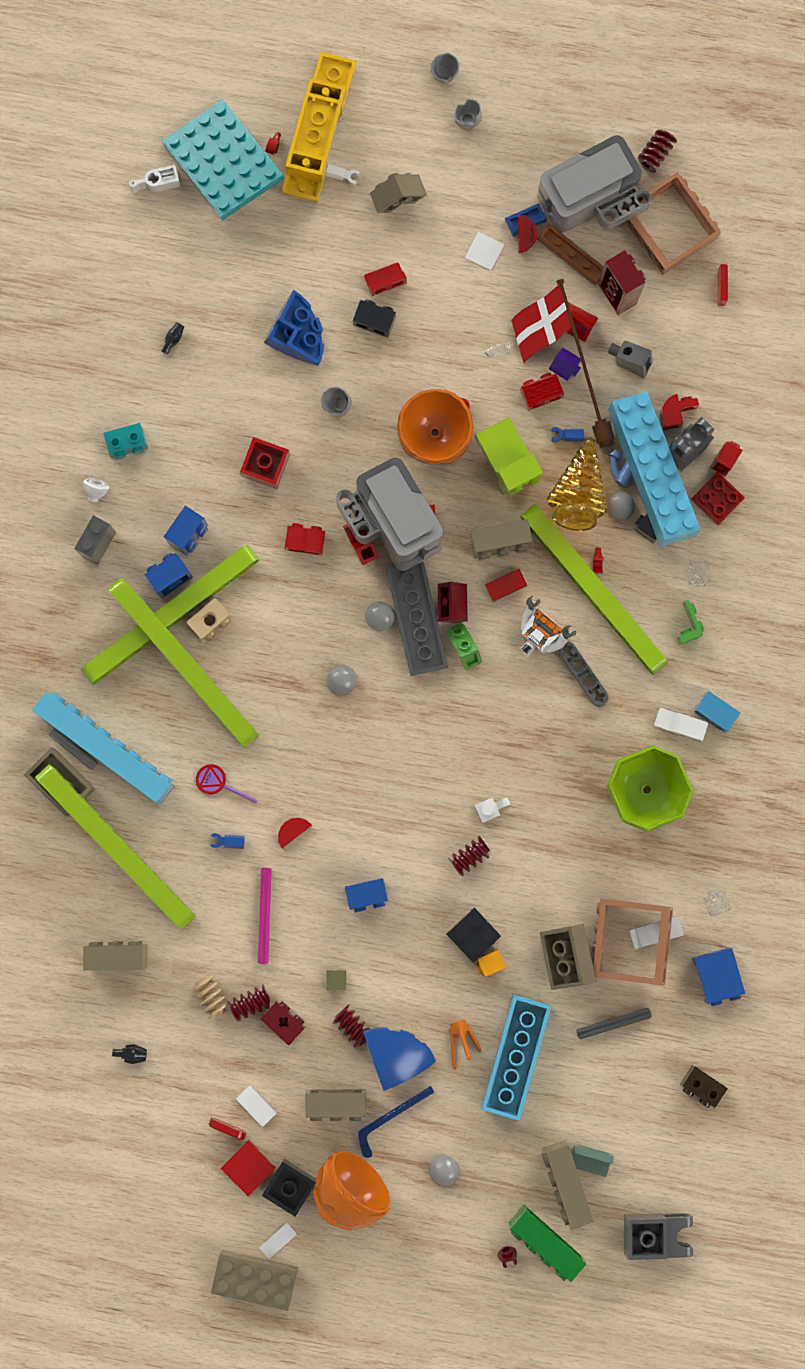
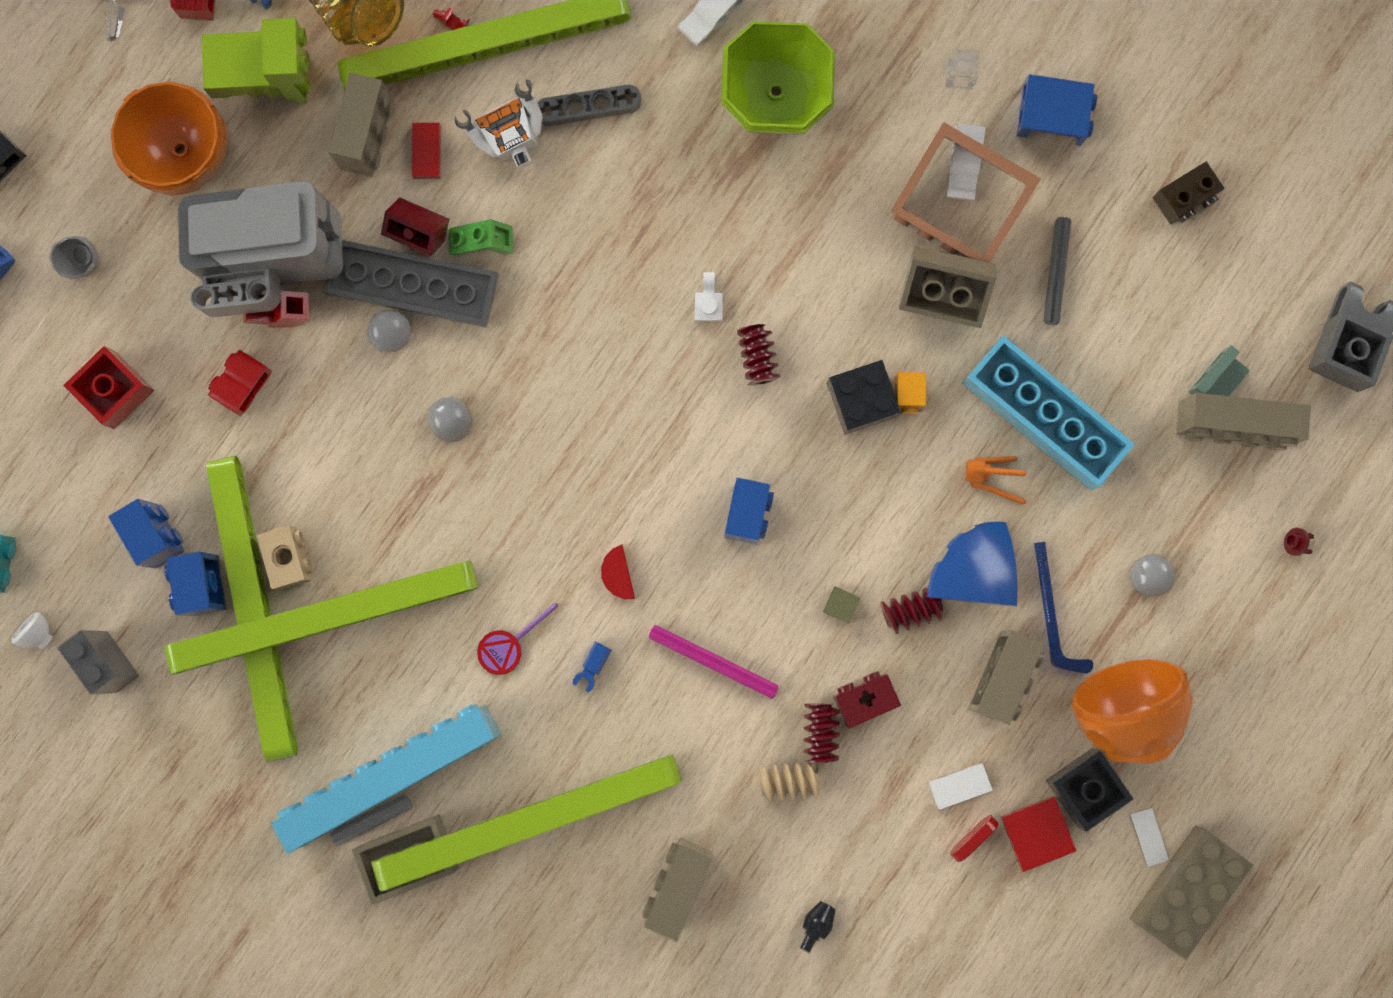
camera: 65 degrees left, 0 degrees up
(547, 1243) = (1308, 483): green piece -> none

